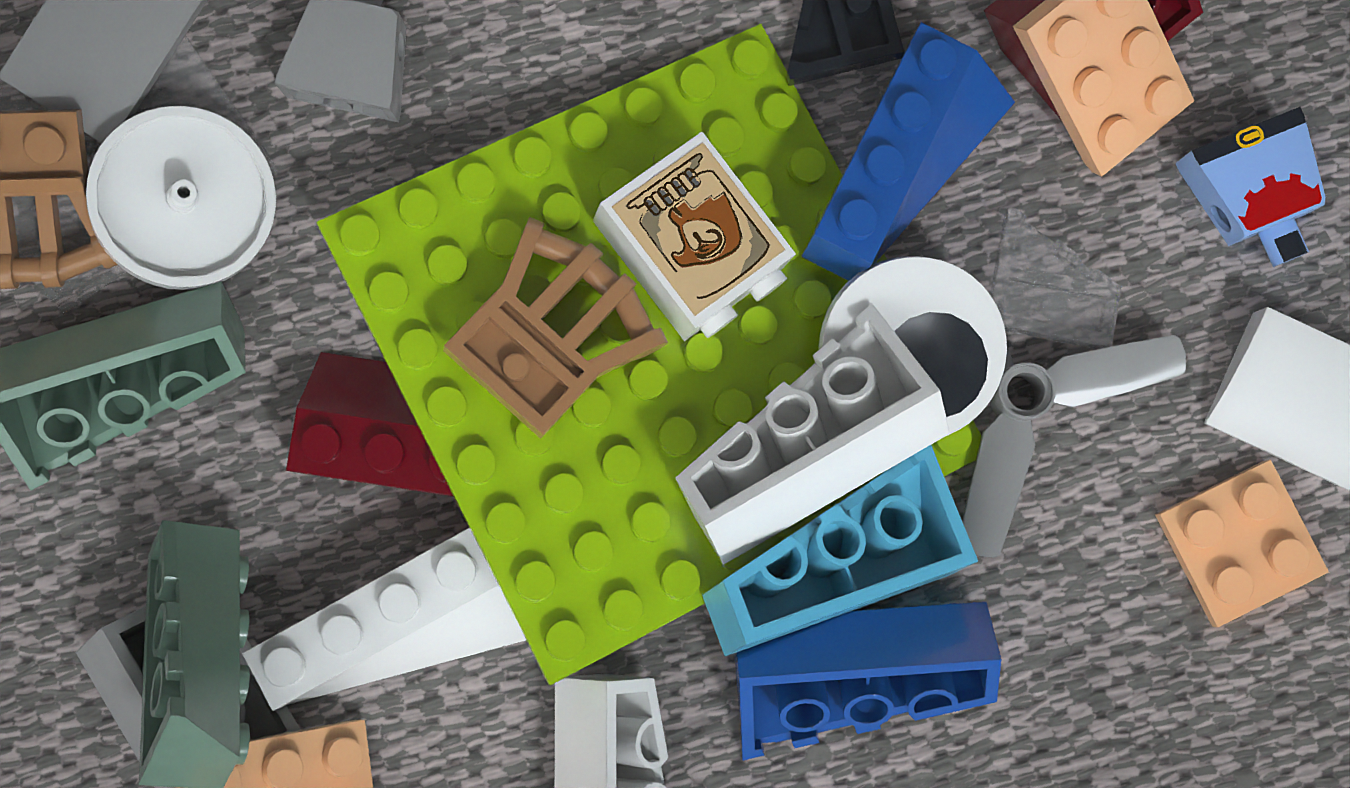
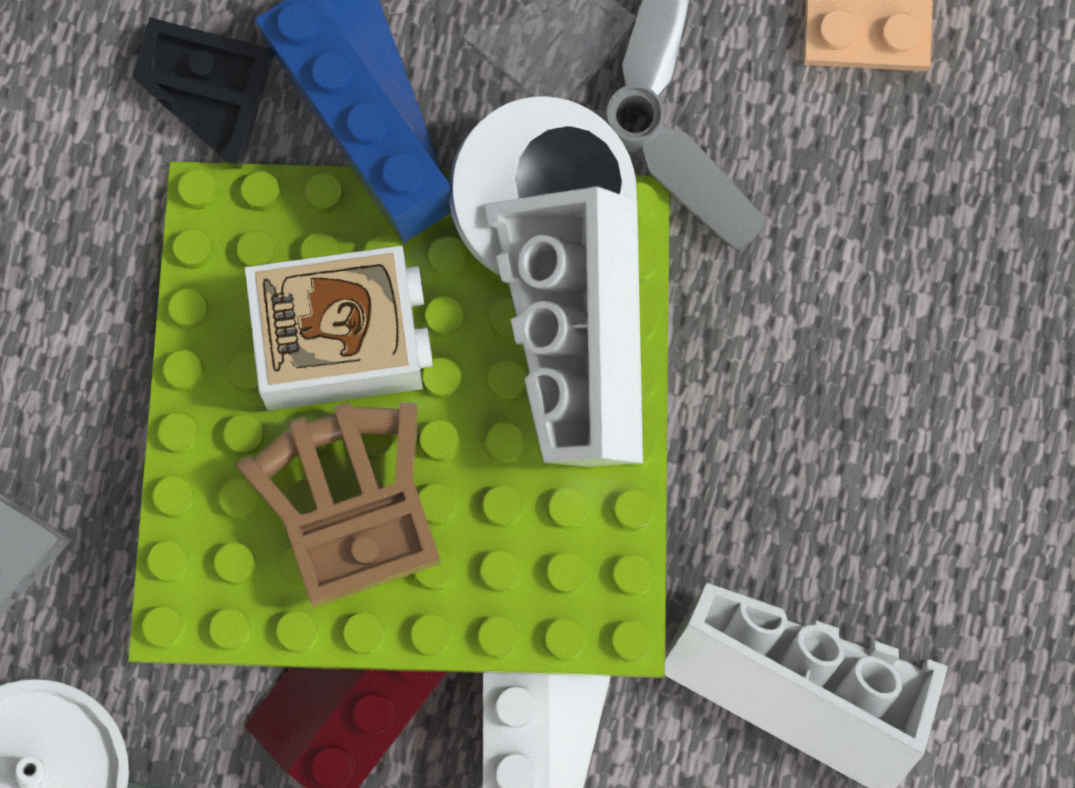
camera: 65 degrees left, 0 degrees up
(860, 551) = (696, 335): medium azure wedge -> none
(866, 671) = (798, 397): blue wedge -> none

